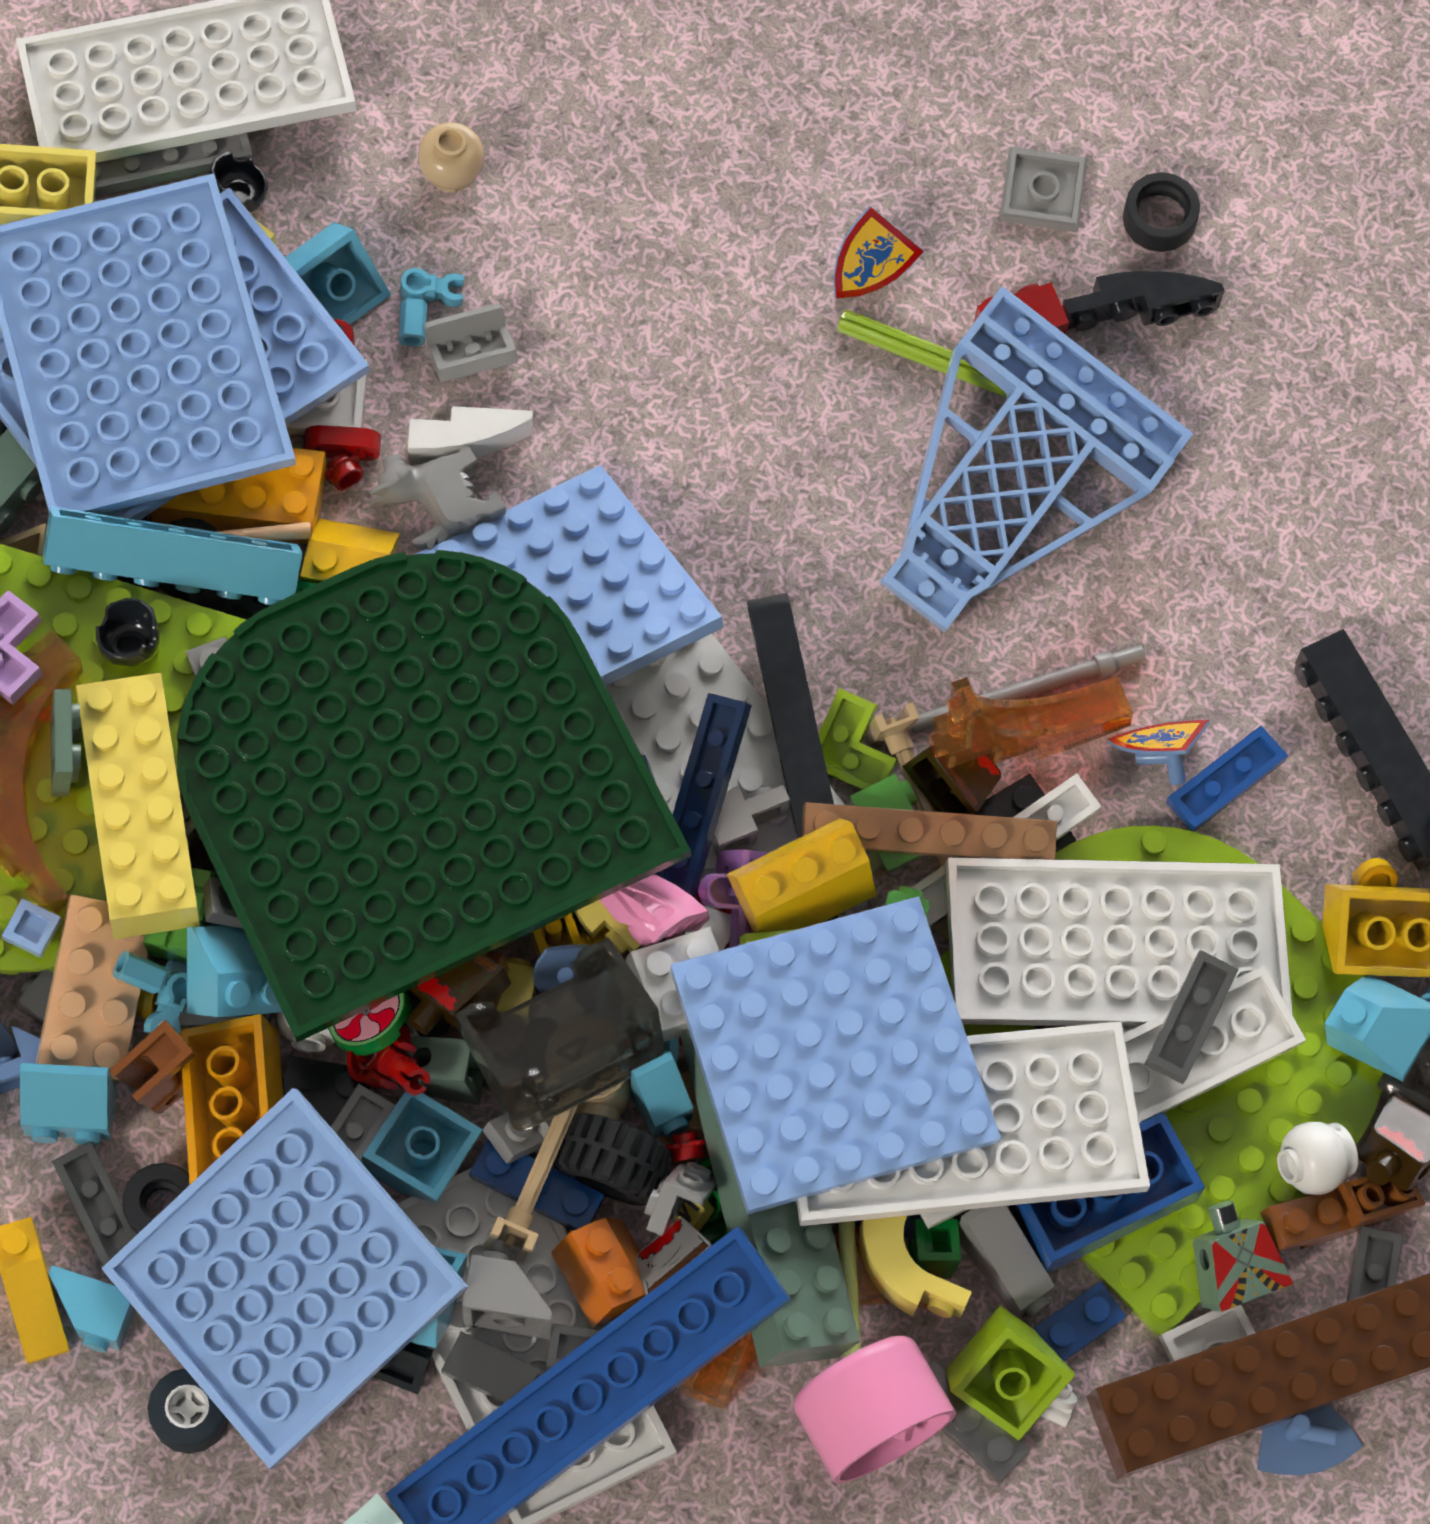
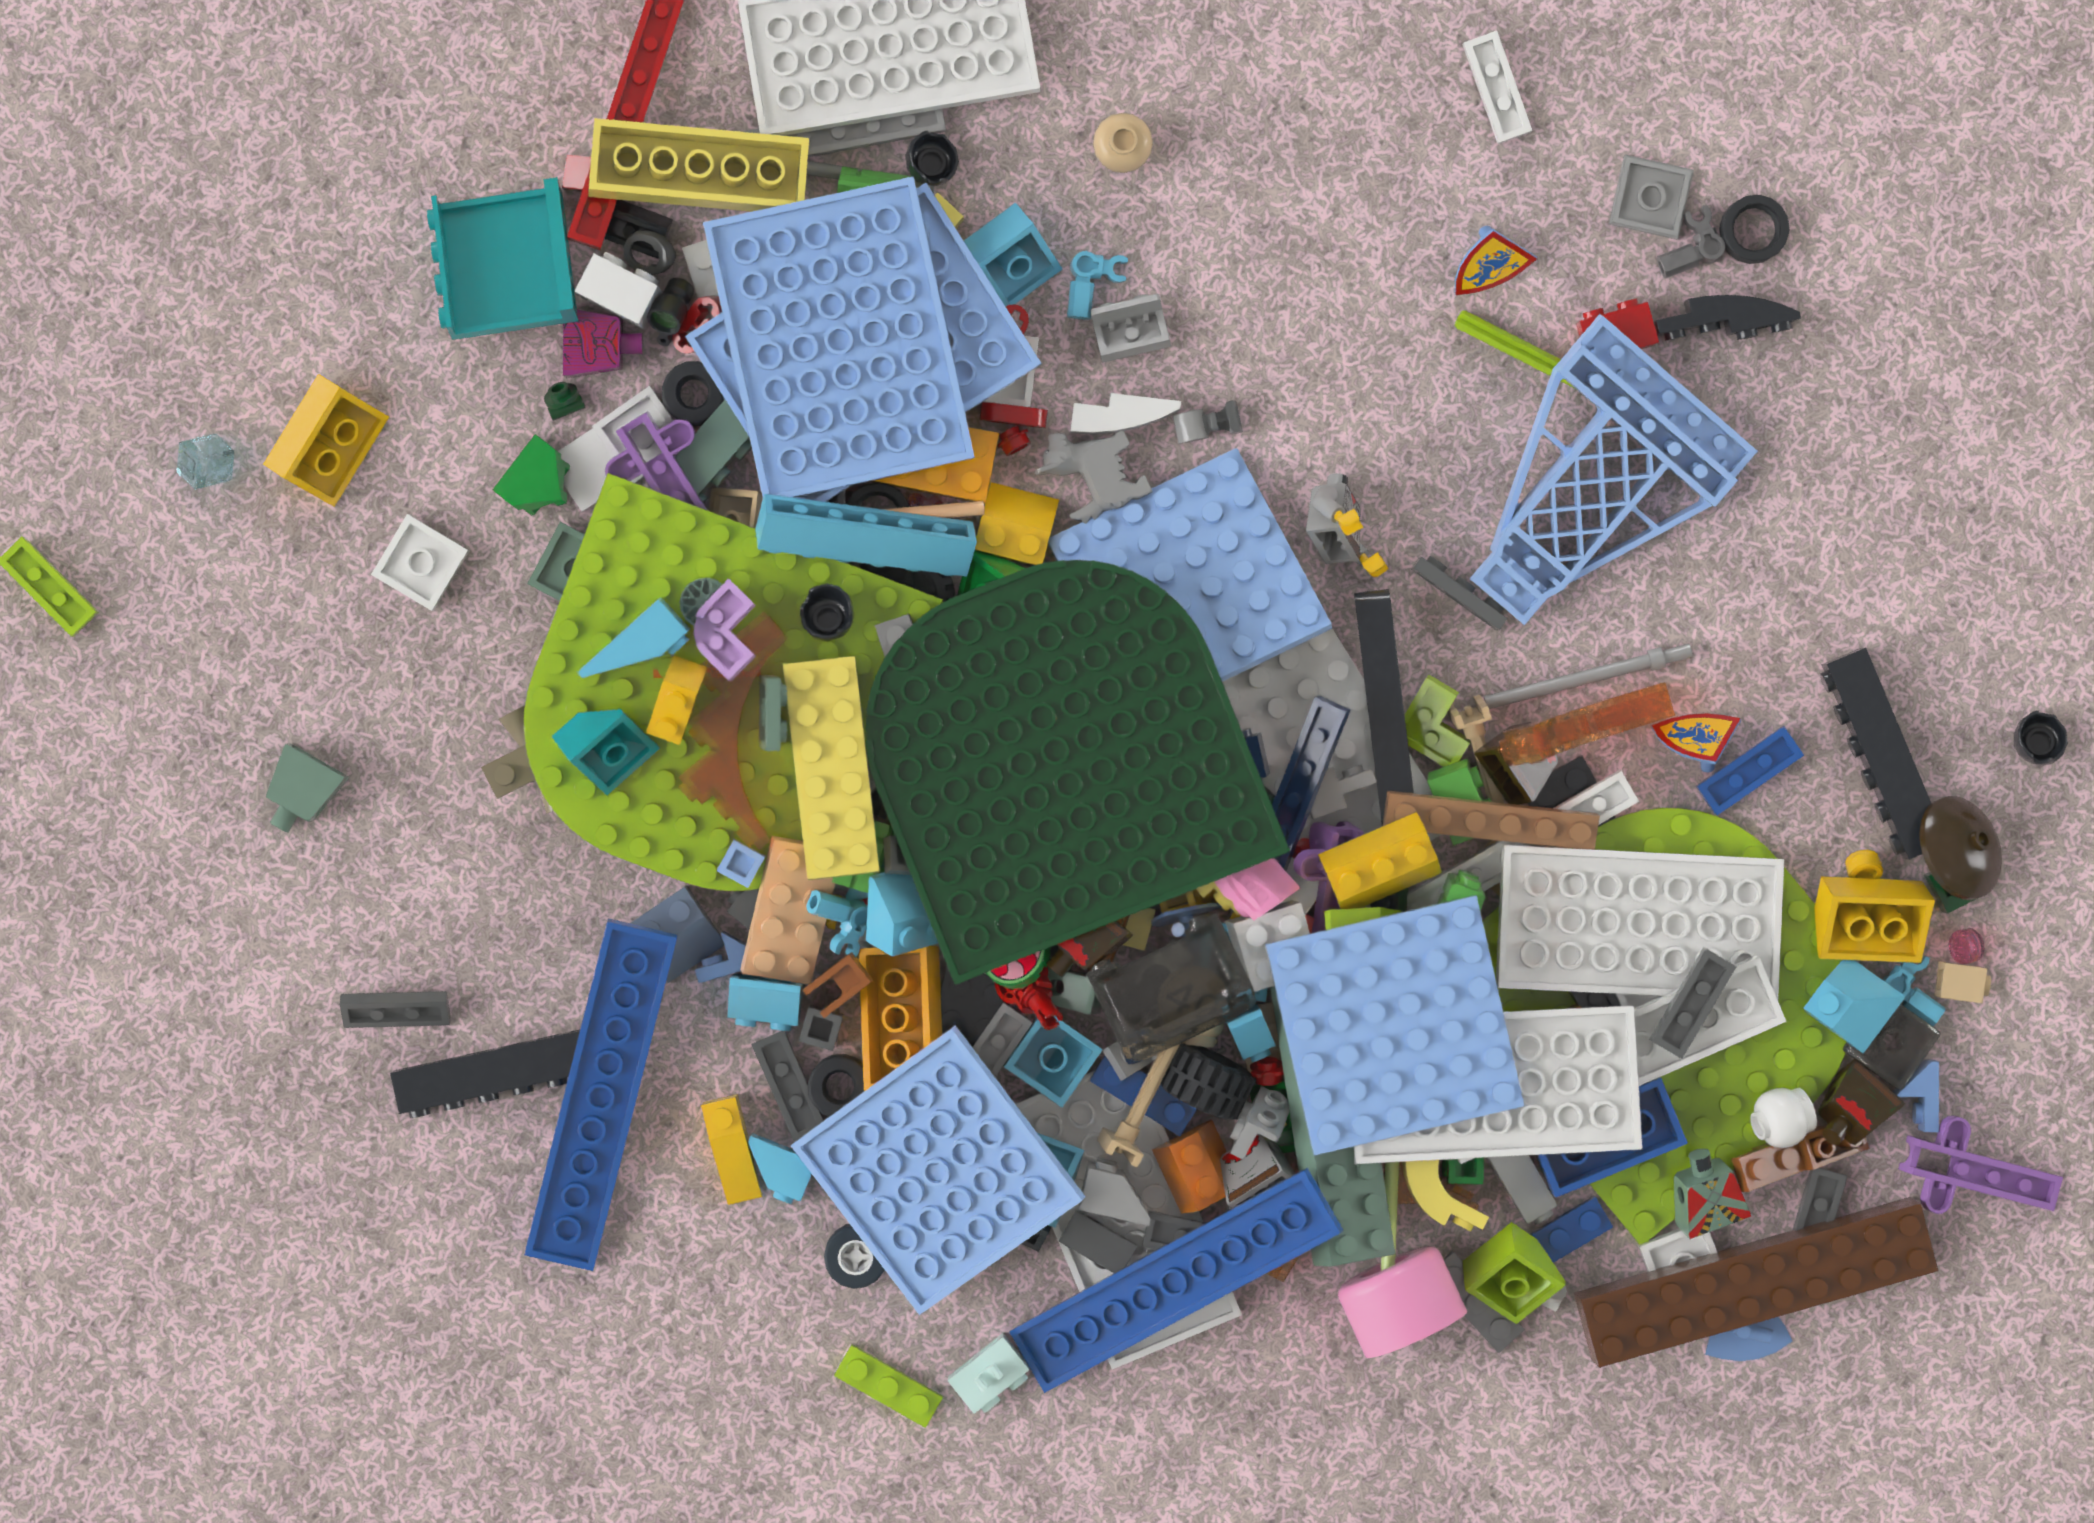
camera: 10 degrees right, 20 degrees up
(137, 1132) = (819, 1030): none -> dark grey brick
(551, 444) = (1197, 424): none -> leg
(721, 534) = (1336, 526): none -> light grey torso
(862, 87) = (1497, 87): none -> white plate
(869, 602) = (1460, 592): none -> dark grey plate
(1111, 234) = (1708, 247): none -> flat silver bar

